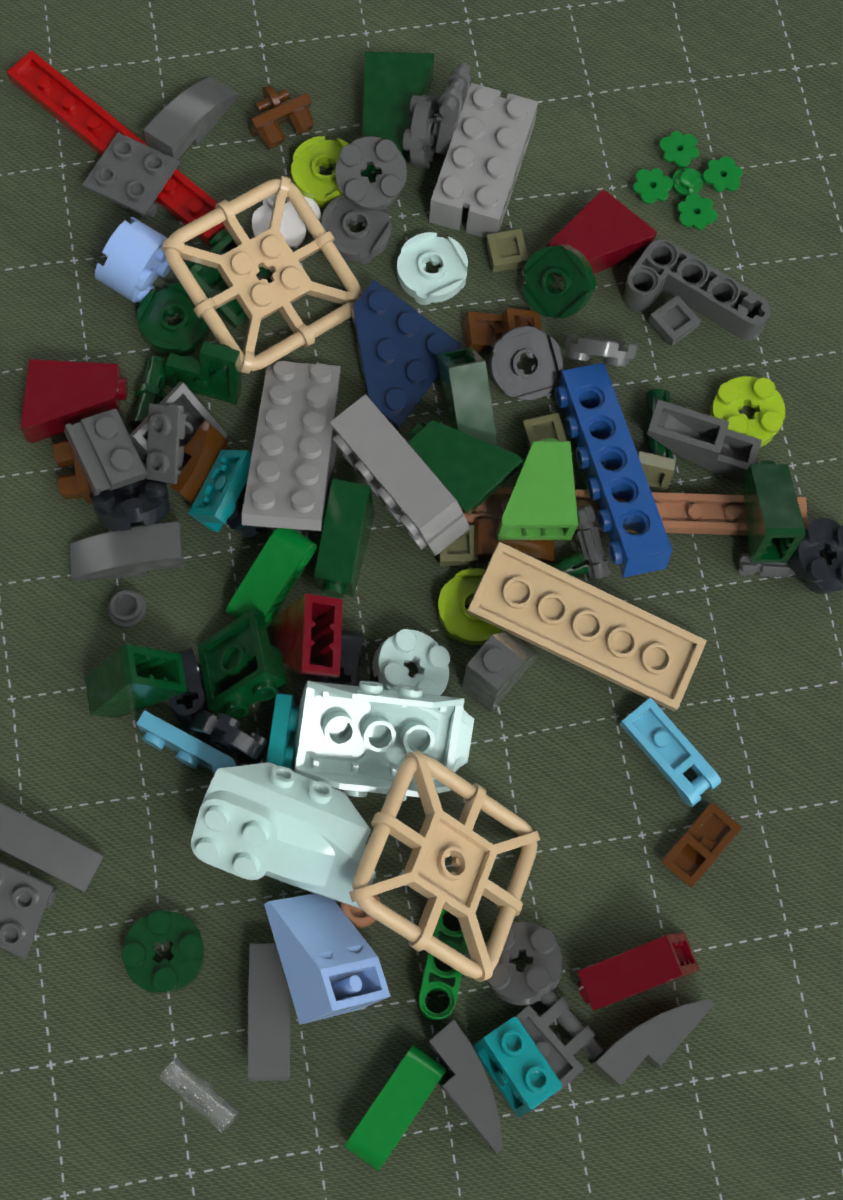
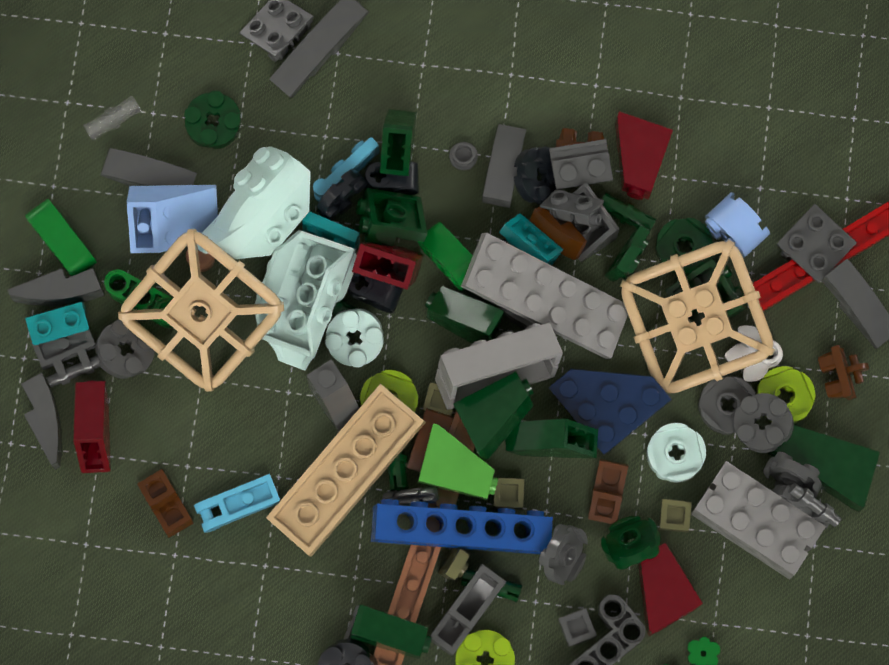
camera: 110 degrees right, 5 degrees up
(535, 345) = (558, 485): black plate -> none

